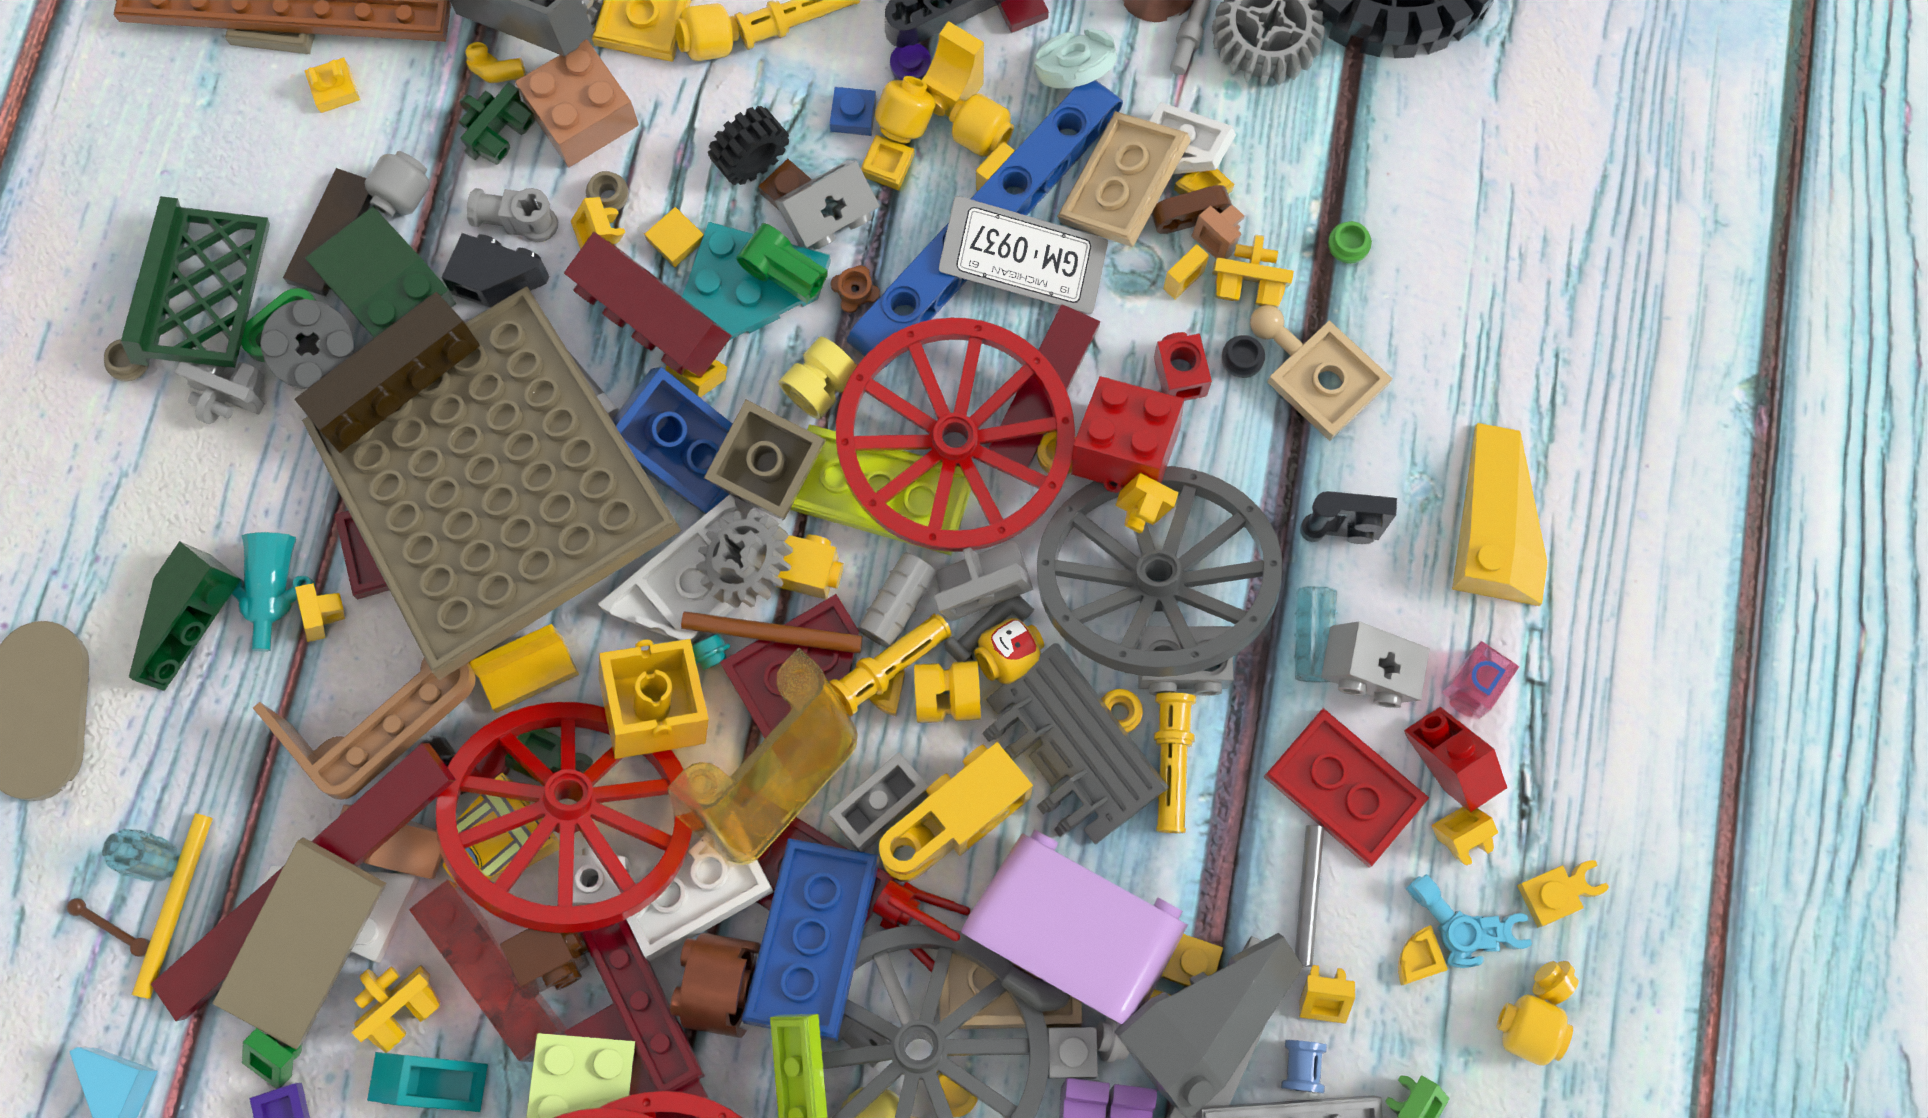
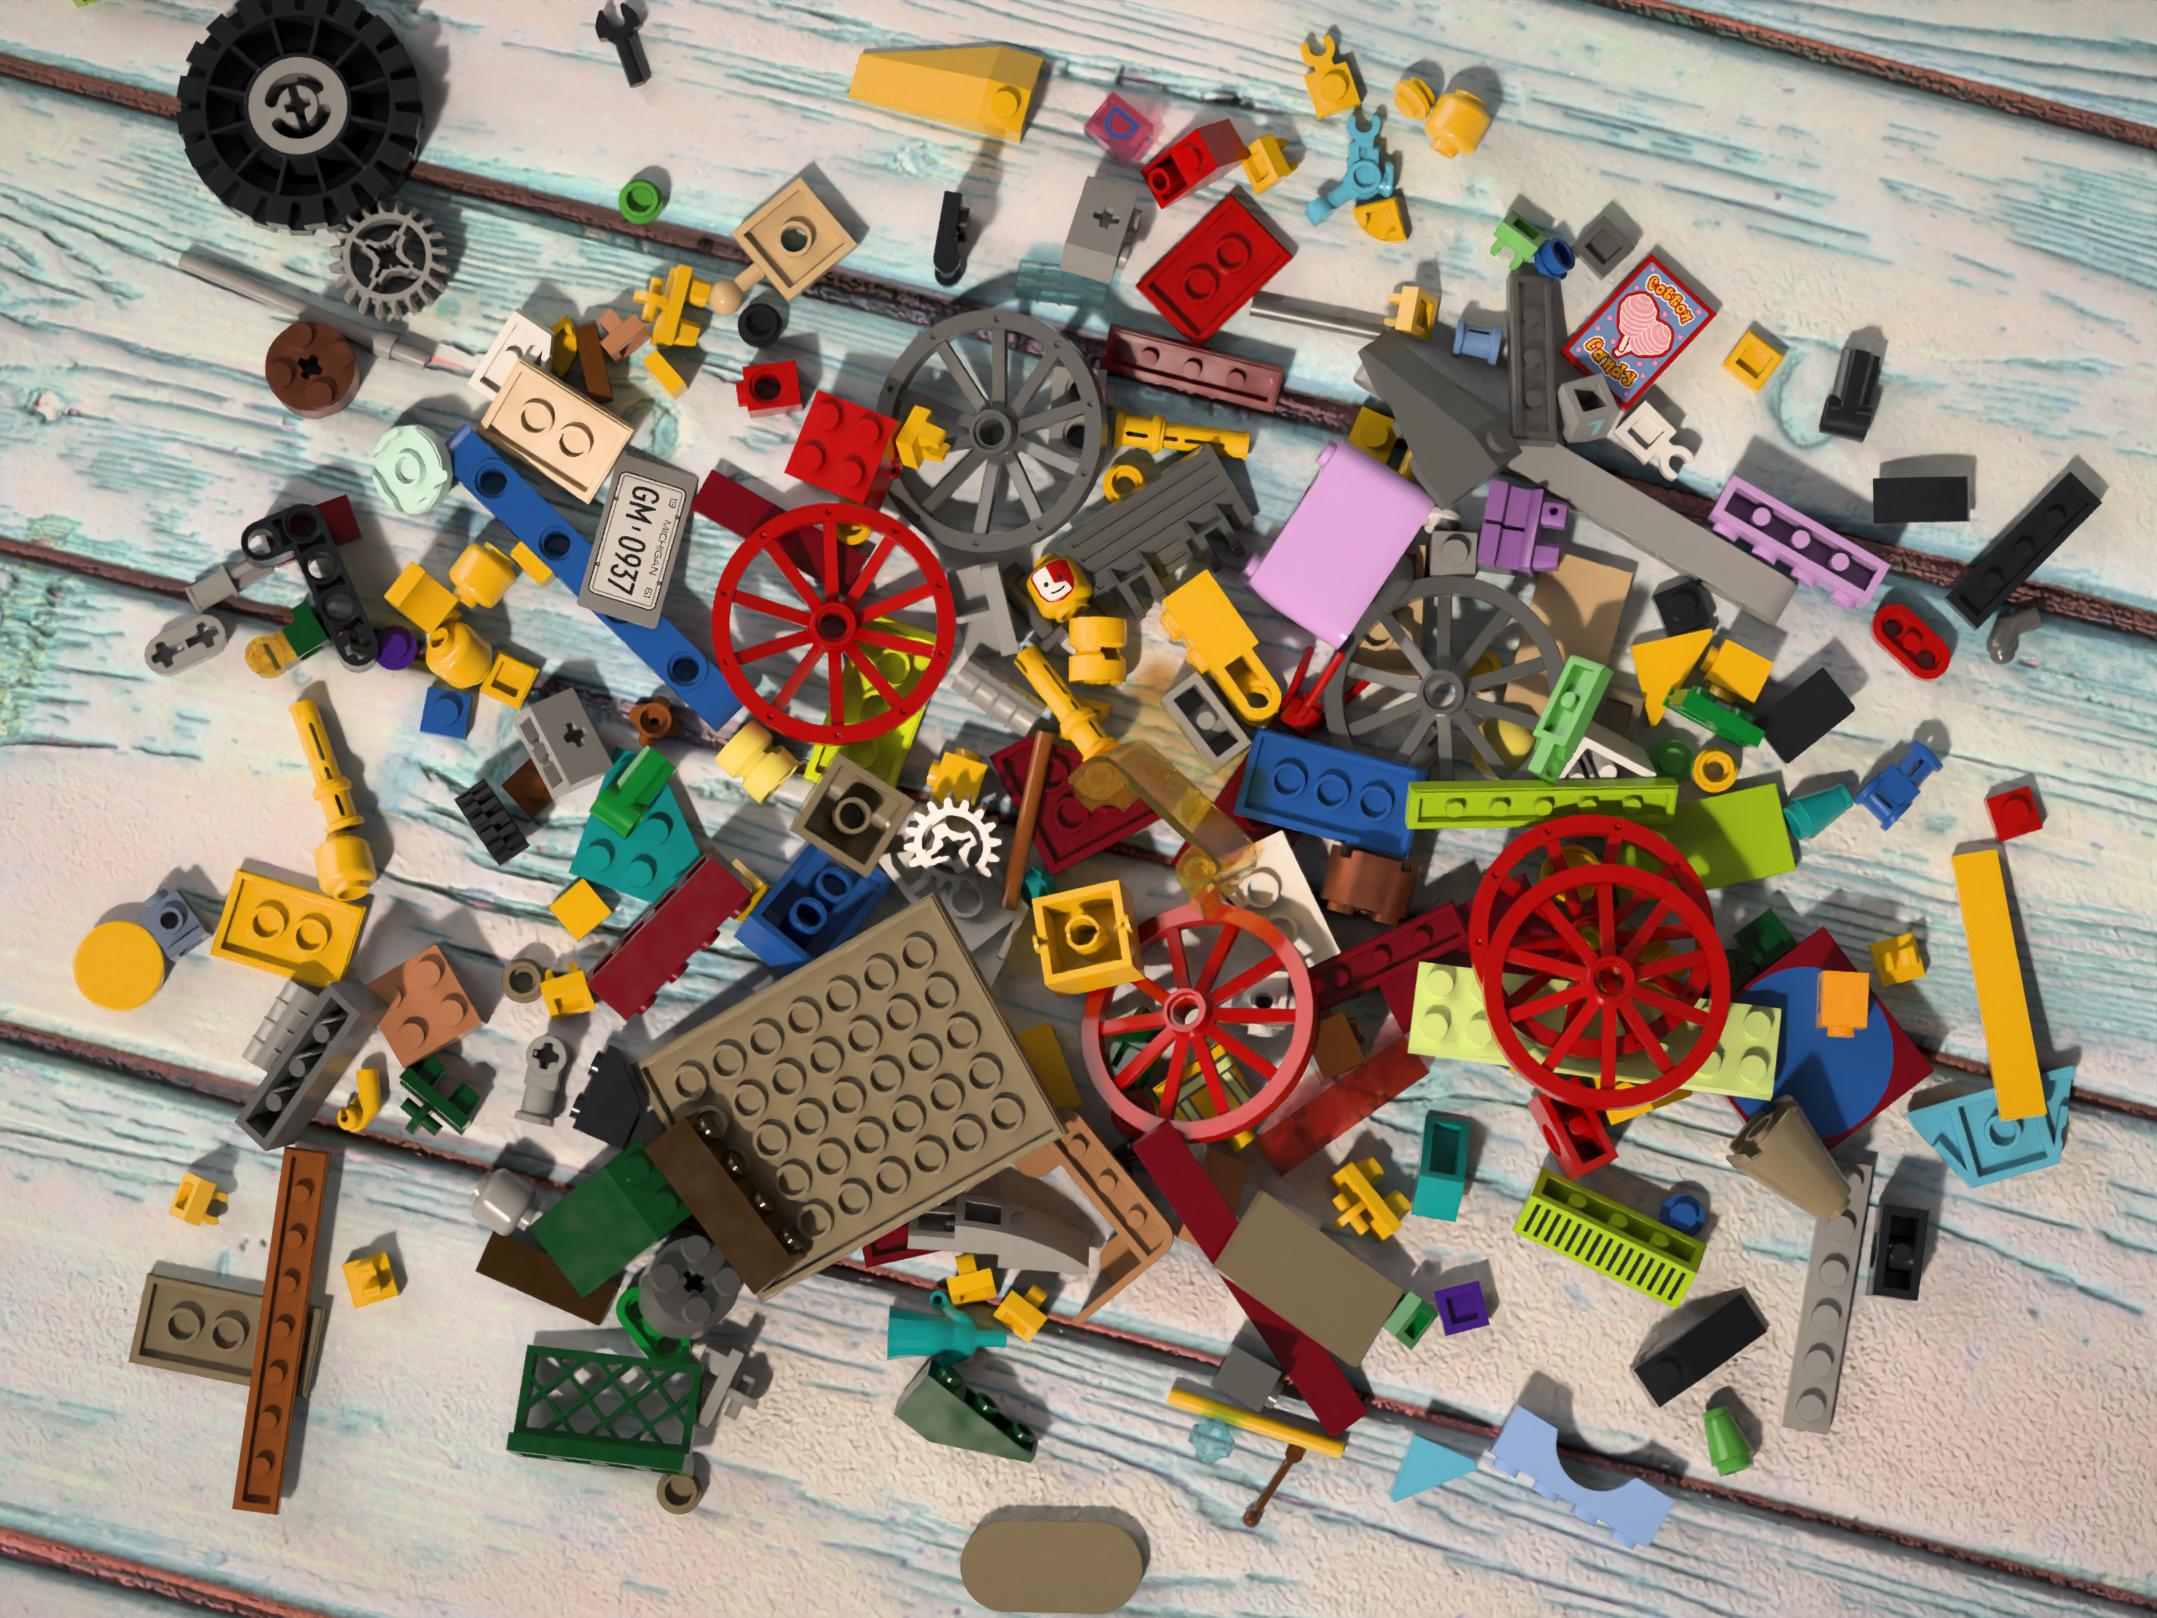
camera: 90 degrees left, 10 degrees up
(201, 888) = (1247, 1380): none -> dark grey brick
(284, 663) = (1022, 1314): none -> yellow tile
(361, 639) = (998, 1227): none -> light grey slope
(1245, 771) = (1192, 367): none -> dark red tile
(1501, 217) = (623, 42): none -> black bar

